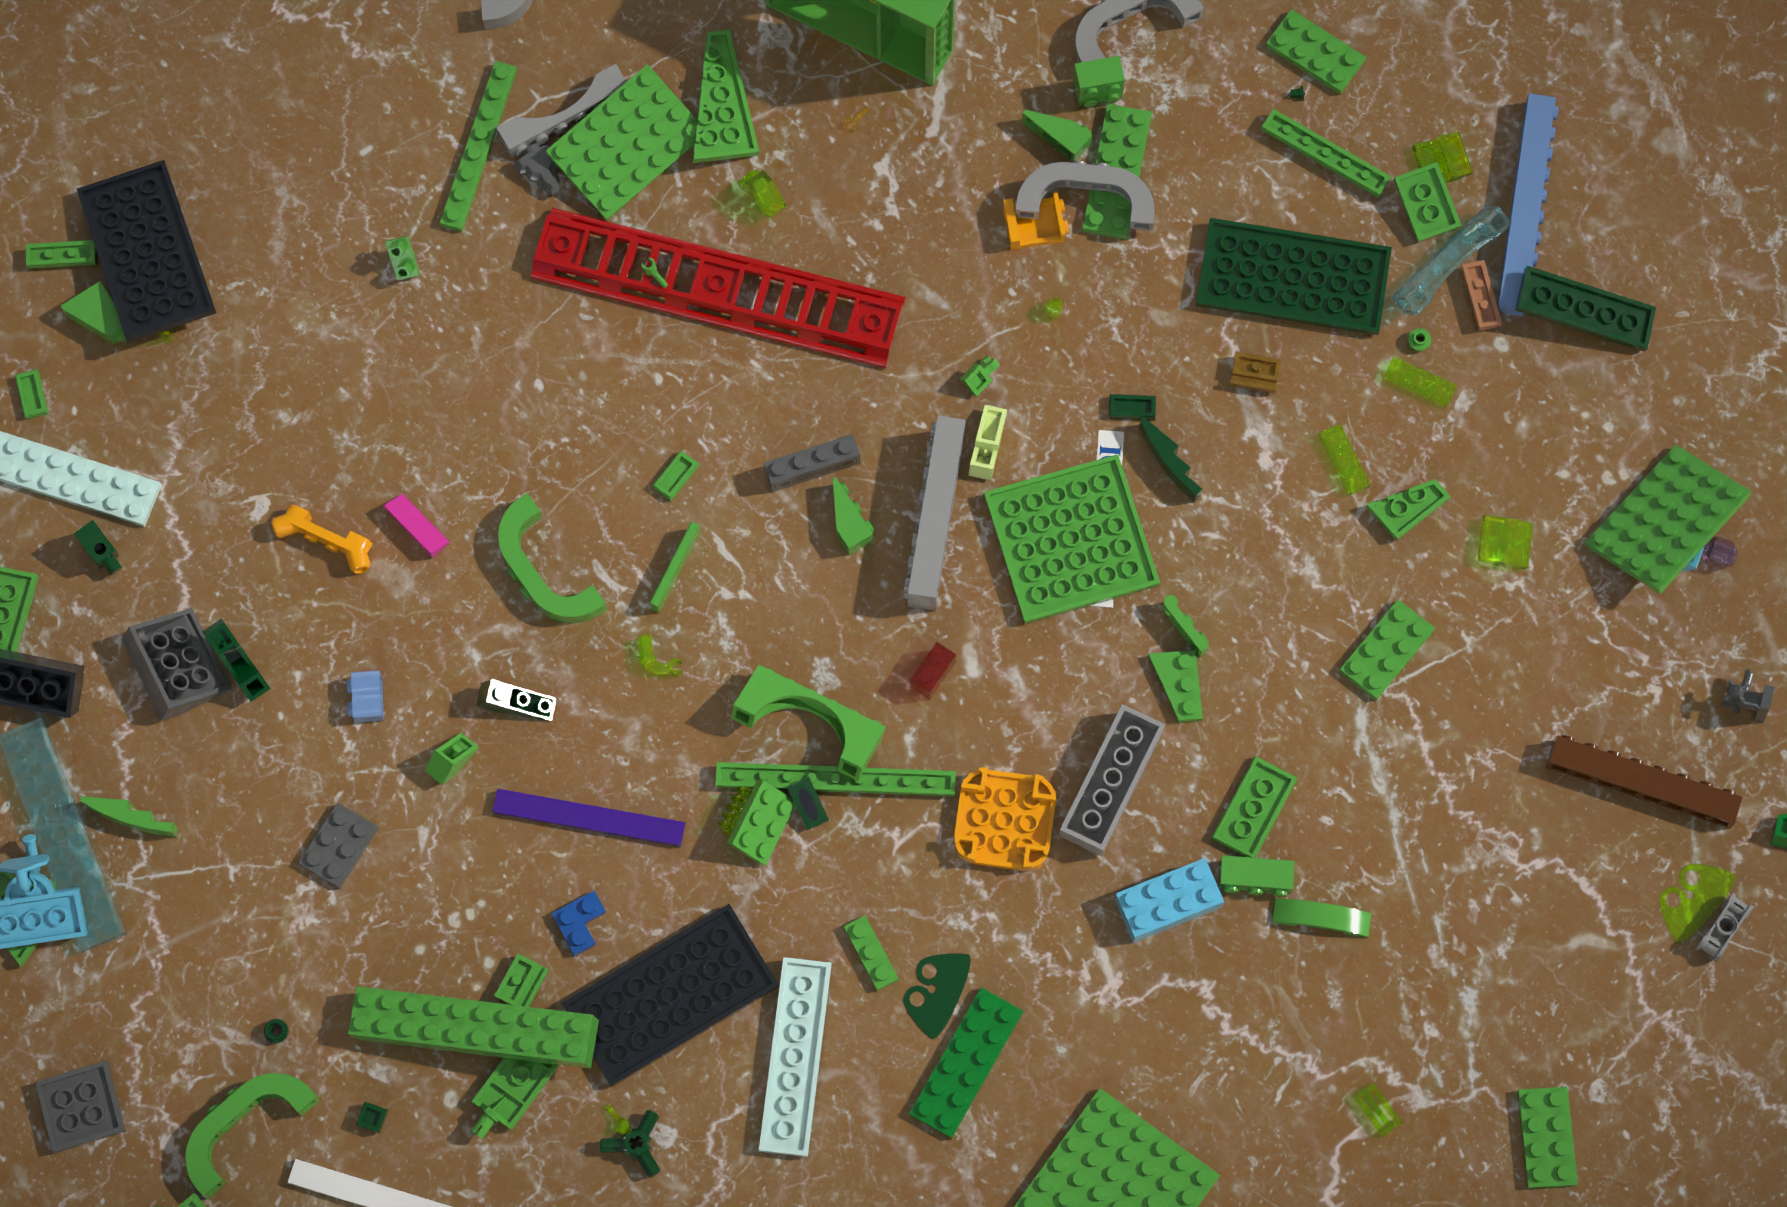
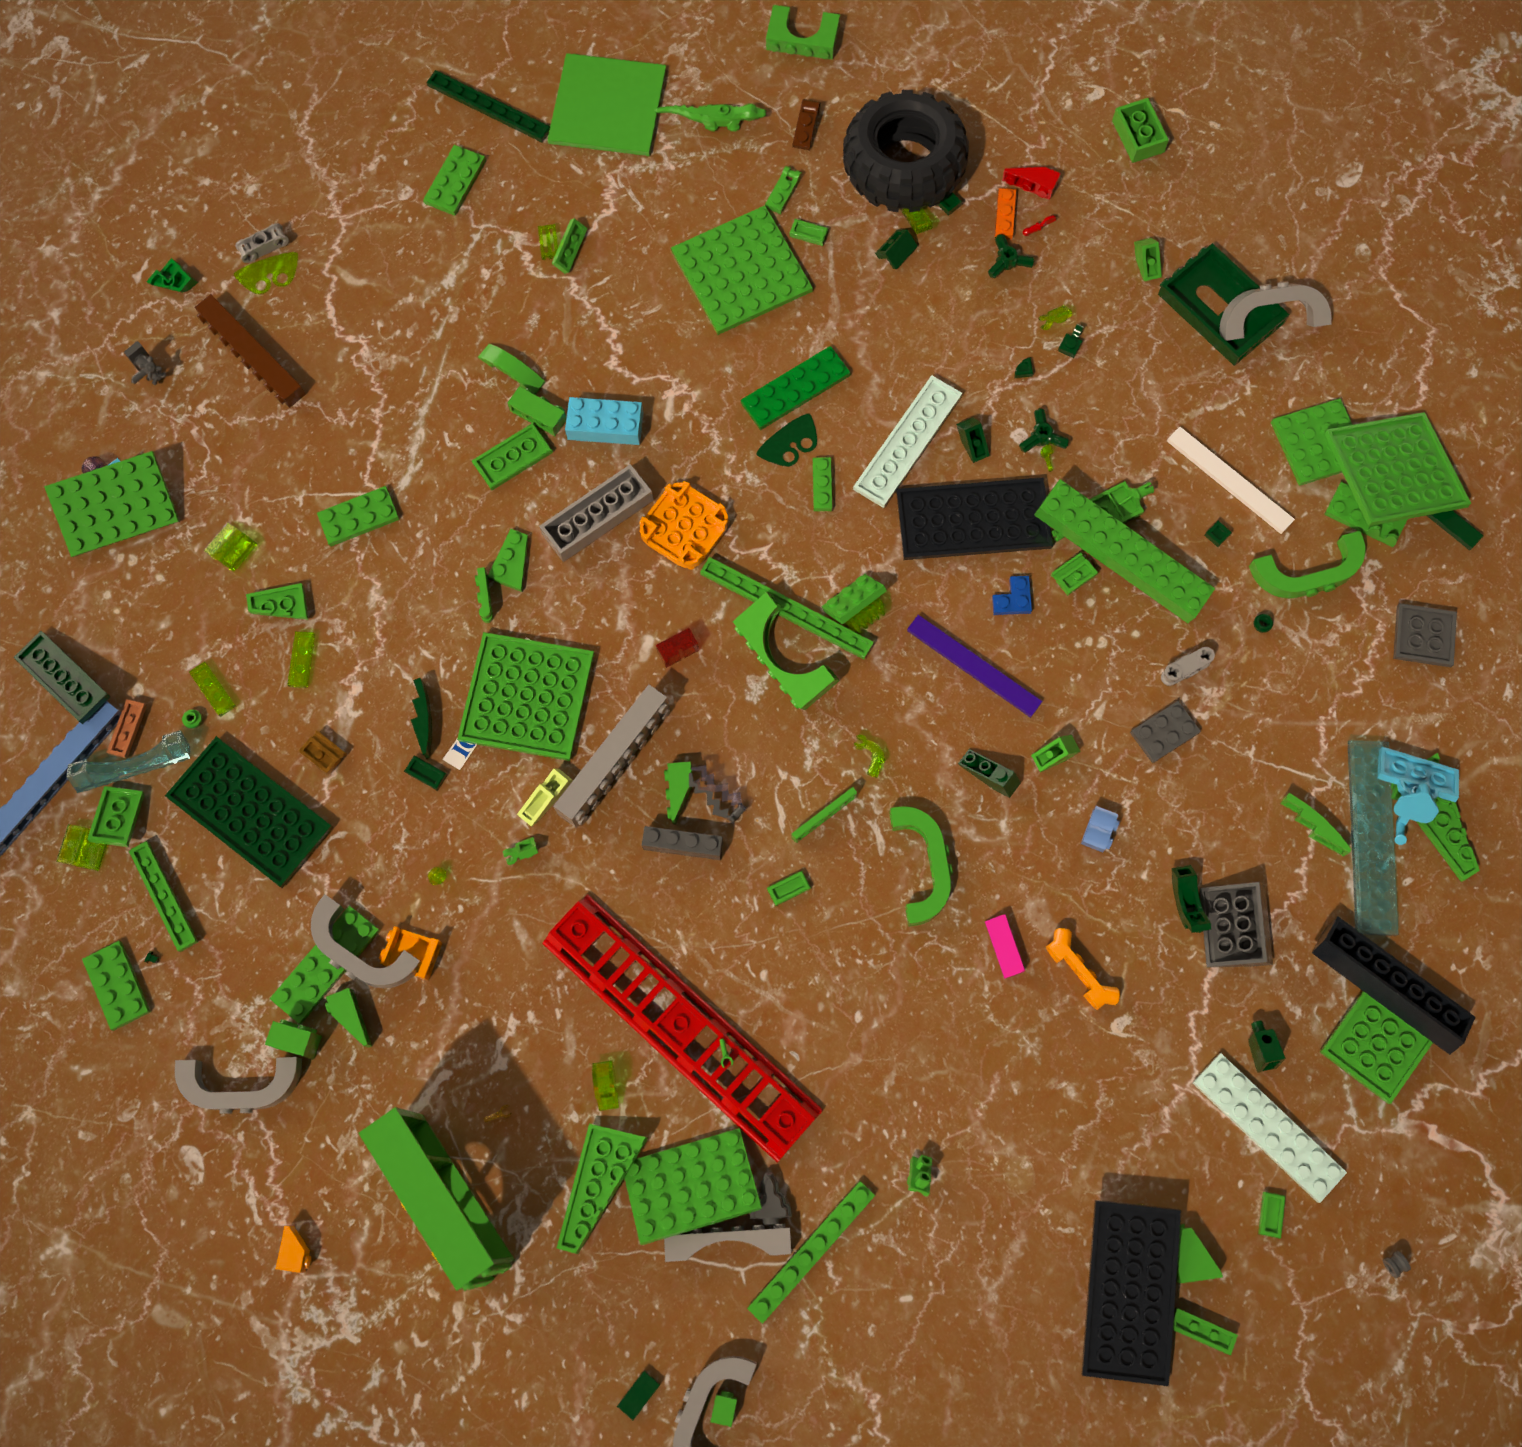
camera: 150 degrees left, 0 degrees up
(343, 932) = (1187, 666): none -> light grey piece
(718, 1096) = (973, 439): none -> dark green slope
(808, 803) = (814, 598): dark green tile -> none
(811, 532) = (735, 797): none -> piece
(1346, 1112) = (569, 246): none -> bright green plate

